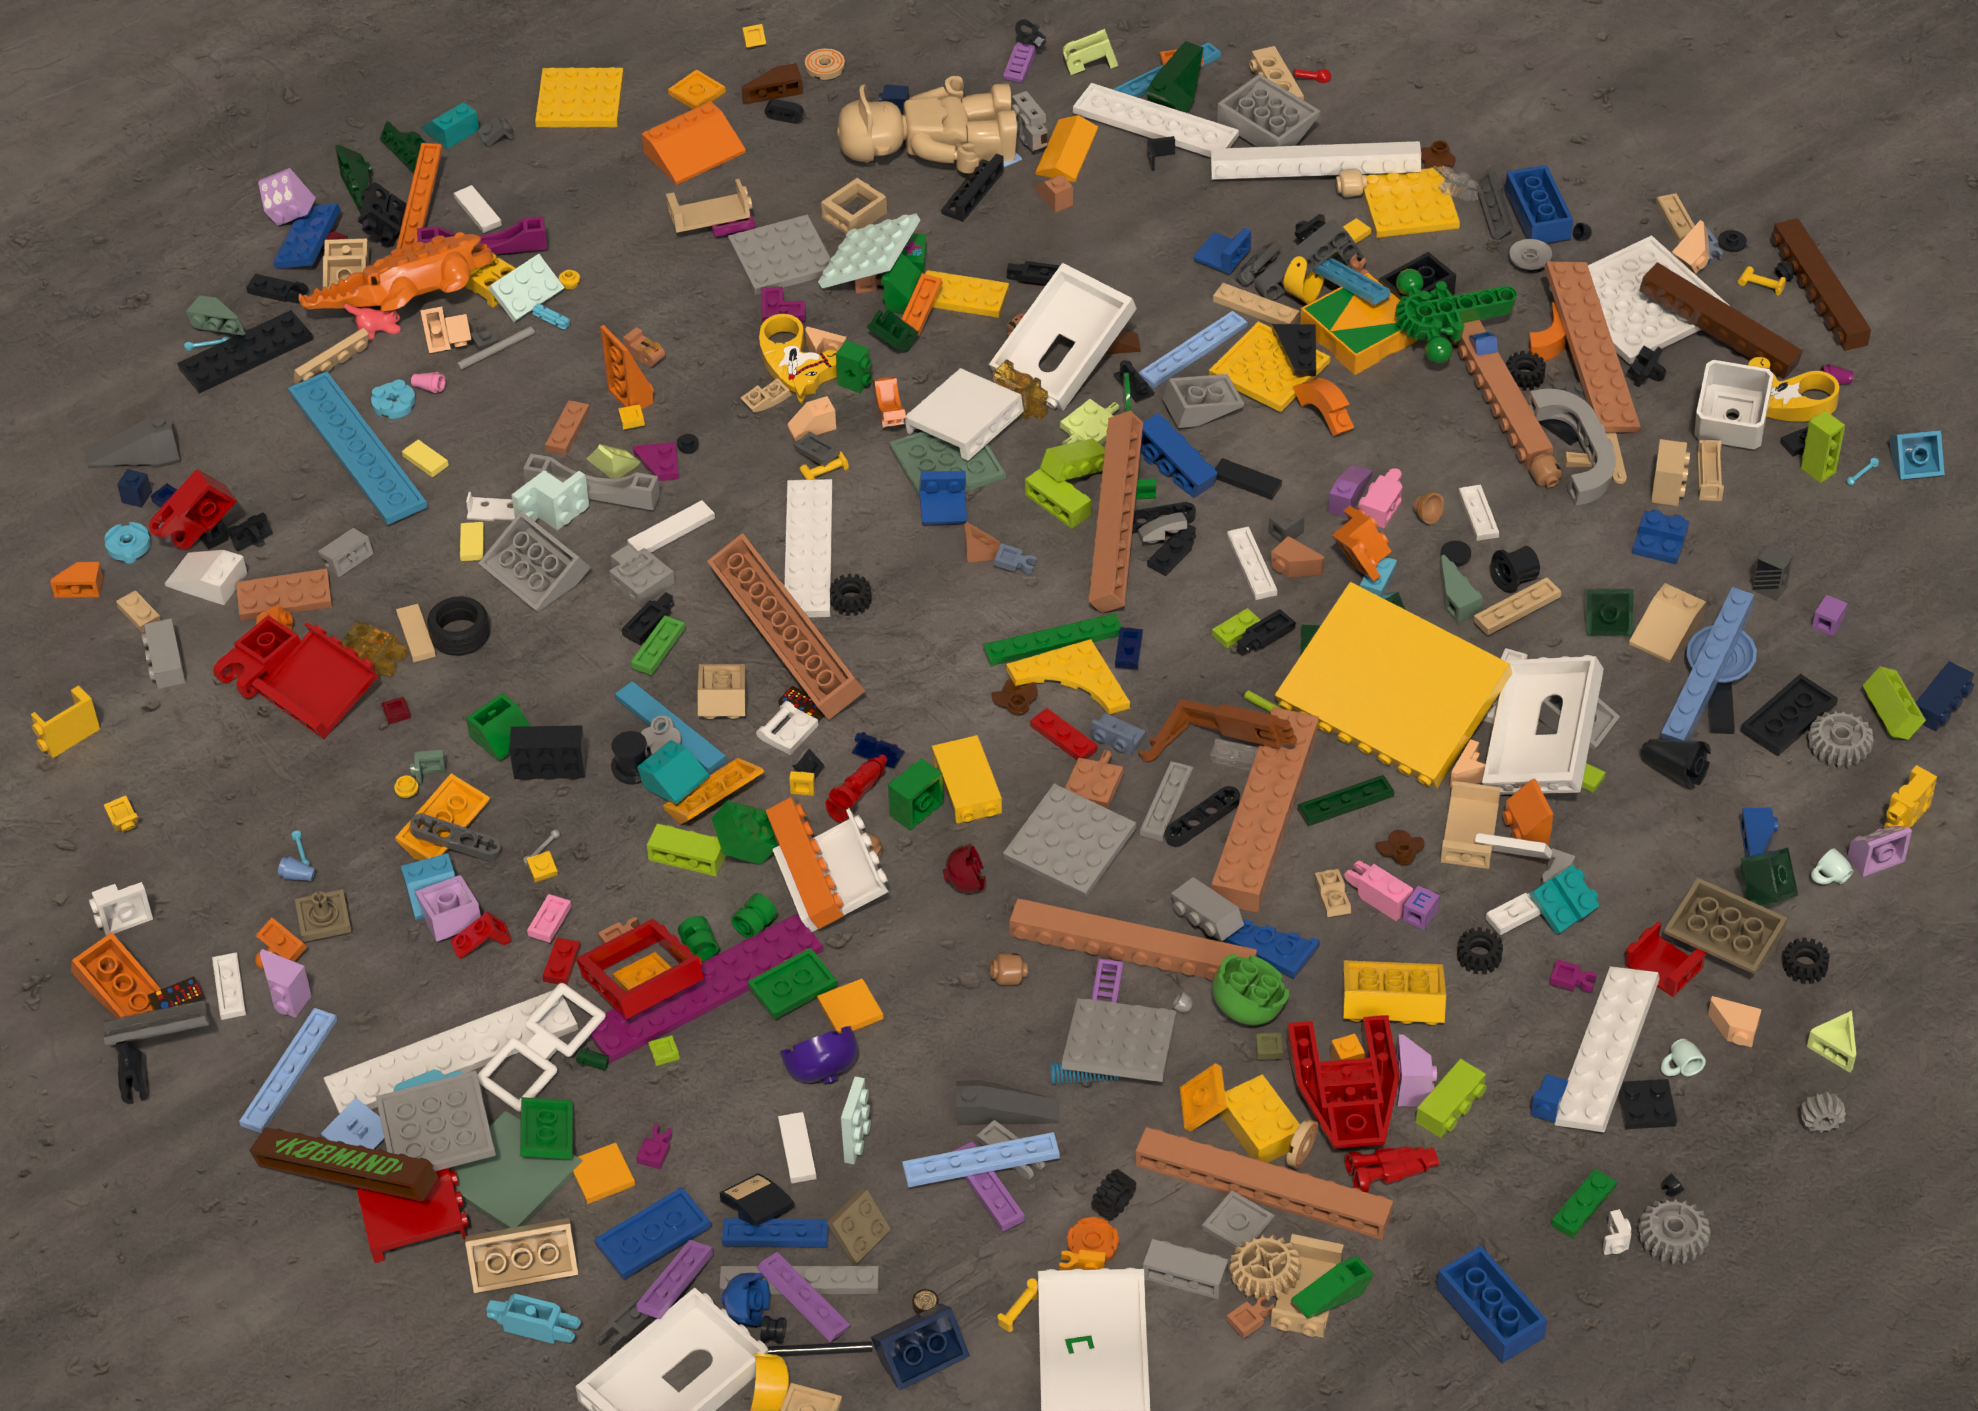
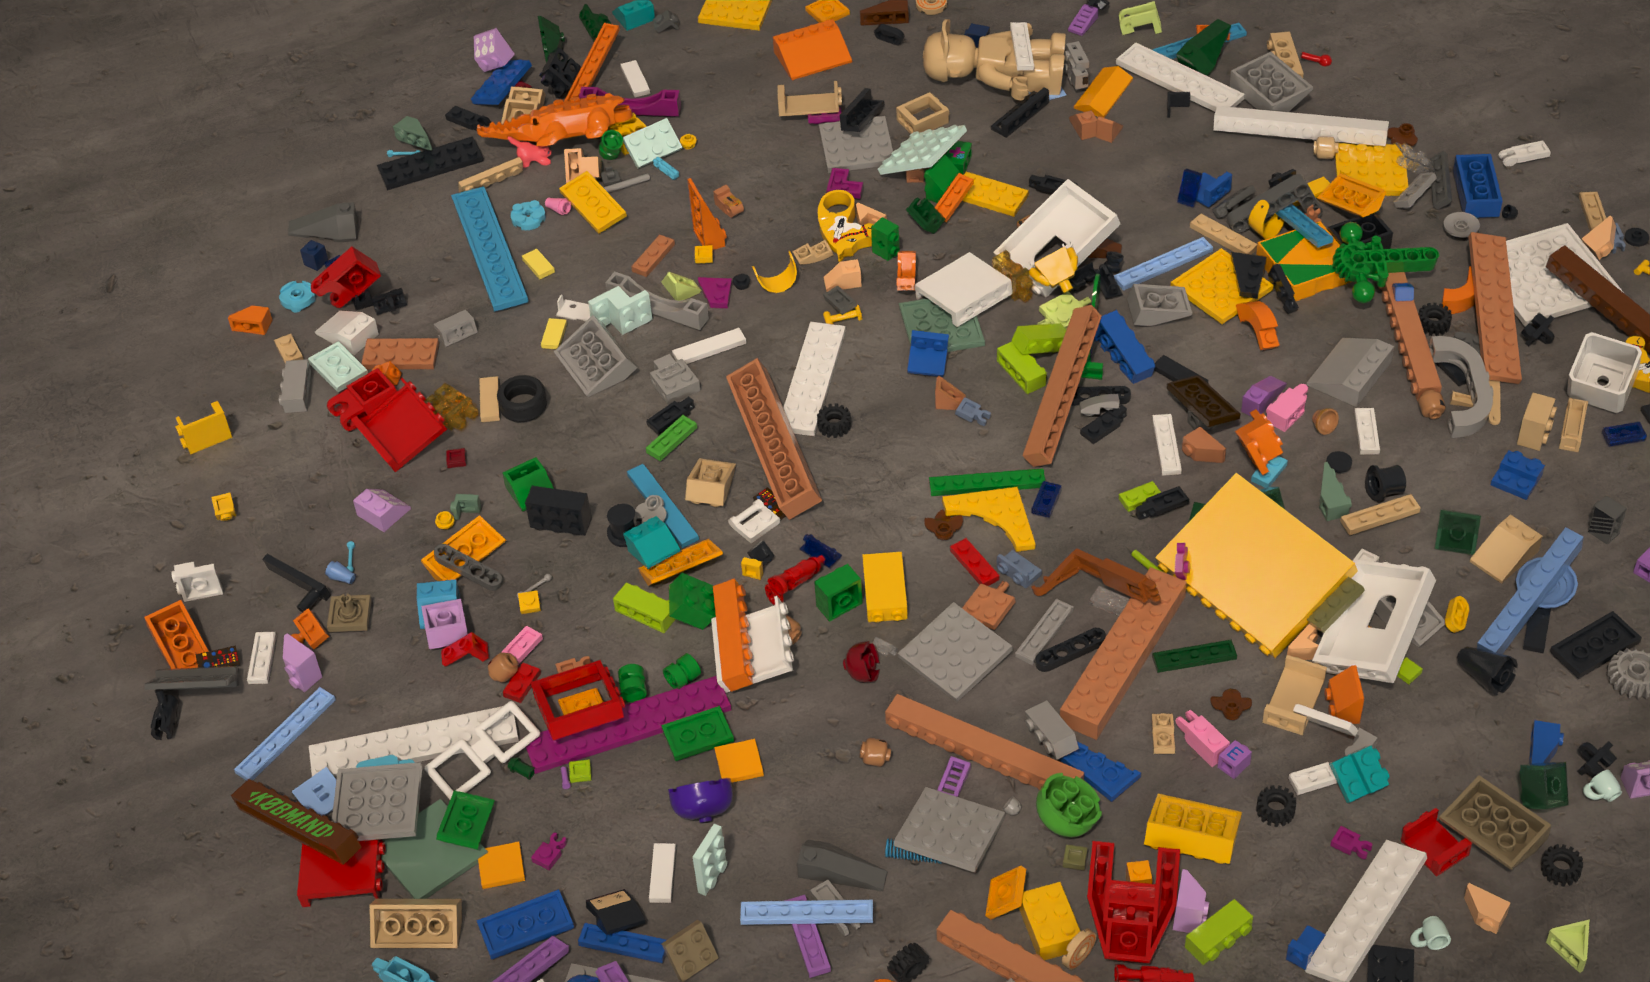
camera: 15 degrees right, 0 degrees up
(210, 622) = (337, 366): none -> light aqua plate
(270, 892) = (315, 589): none -> black piece
(320, 785) = (379, 508): none -> lavender slope
(473, 371) = (593, 202): none -> yellow plate
(475, 297) = (610, 145): none -> green wheel
(535, 946) = (502, 667): none -> medium nougat head
(651, 1068) = (566, 783): none -> medium lavender piece
(738, 435) = (780, 282): none -> yellow piece
(773, 214) = (860, 112): none -> black fence
(959, 106) = (1022, 46): none -> white tile
(987, 849) = (884, 647): none -> clear plate
(1073, 373) = (1056, 268): none -> yellow torso
(1085, 195) = (1107, 129): none -> nougat slope
(1100, 380) = (1082, 275): none -> black hinge
(1135, 354) = (1113, 261): none -> black wheel
(1203, 253) = (1189, 187): none -> clear blue tile
(1284, 505) = (1203, 401): none -> dark brown tile
(1310, 699) = (1182, 566): none -> magenta plate
(1343, 359) = (1283, 288): none -> black hinge
(1398, 237) = (1353, 195): none -> light orange slope
(1444, 442) = (1352, 369): none -> light grey slope
(1467, 220) = (1415, 190): none -> light grey plate
(1496, 715) = (1335, 604): none -> olive plate
(1583, 158) = (1524, 153): none -> white hinge
(1629, 705) = (1457, 614): none -> yellow plate
(1768, 472) = (1624, 434): none -> clear blue plate
(1822, 833) = (1593, 755): none -> black hips

